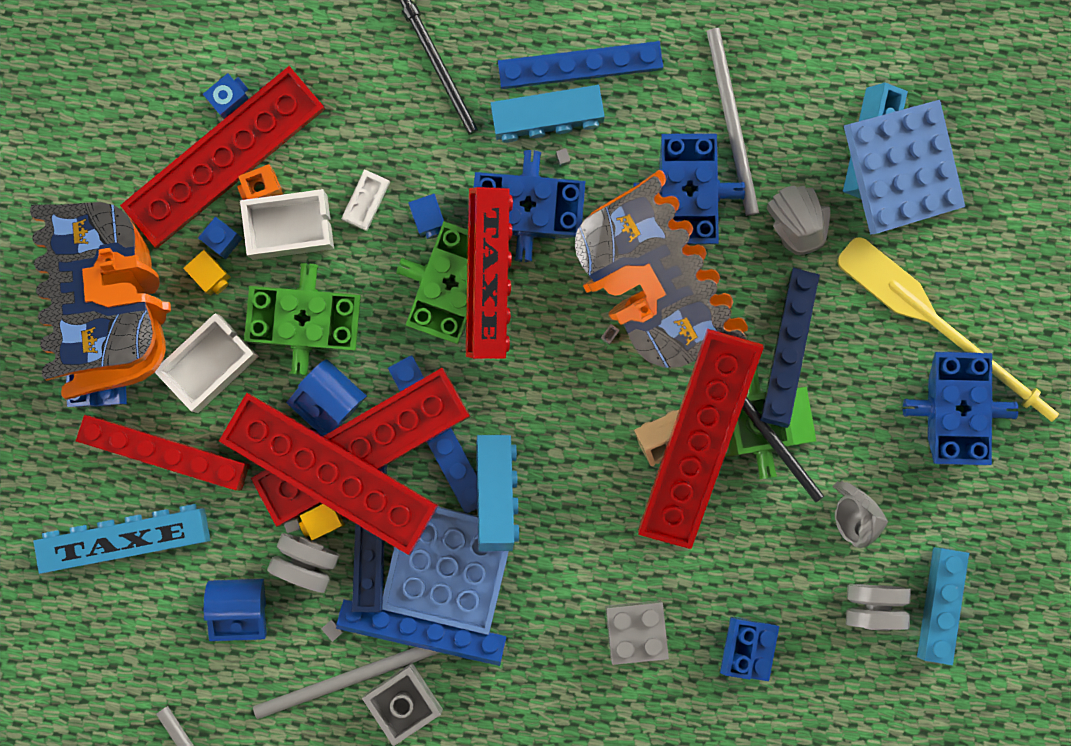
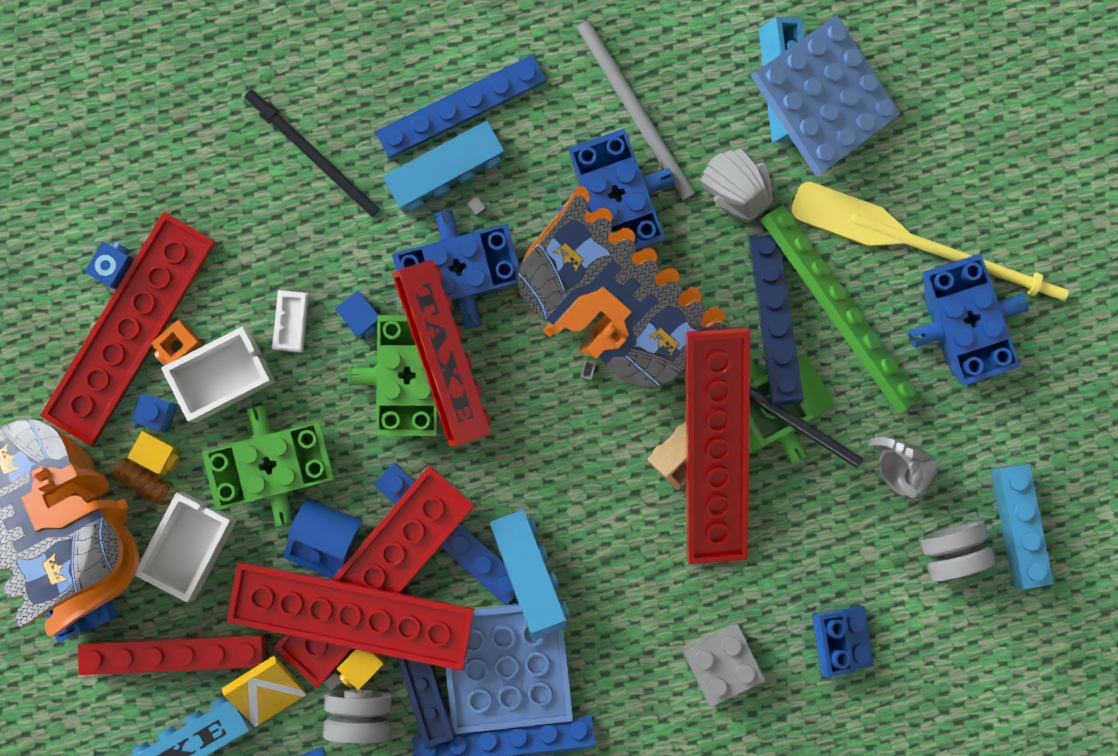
camera: 20 degrees left, 0 degrees up
(187, 293) = (140, 480): none -> clear orange piece
(230, 512) = (264, 691): none -> yellow tile
(851, 359) = (840, 309): none -> bright green plate

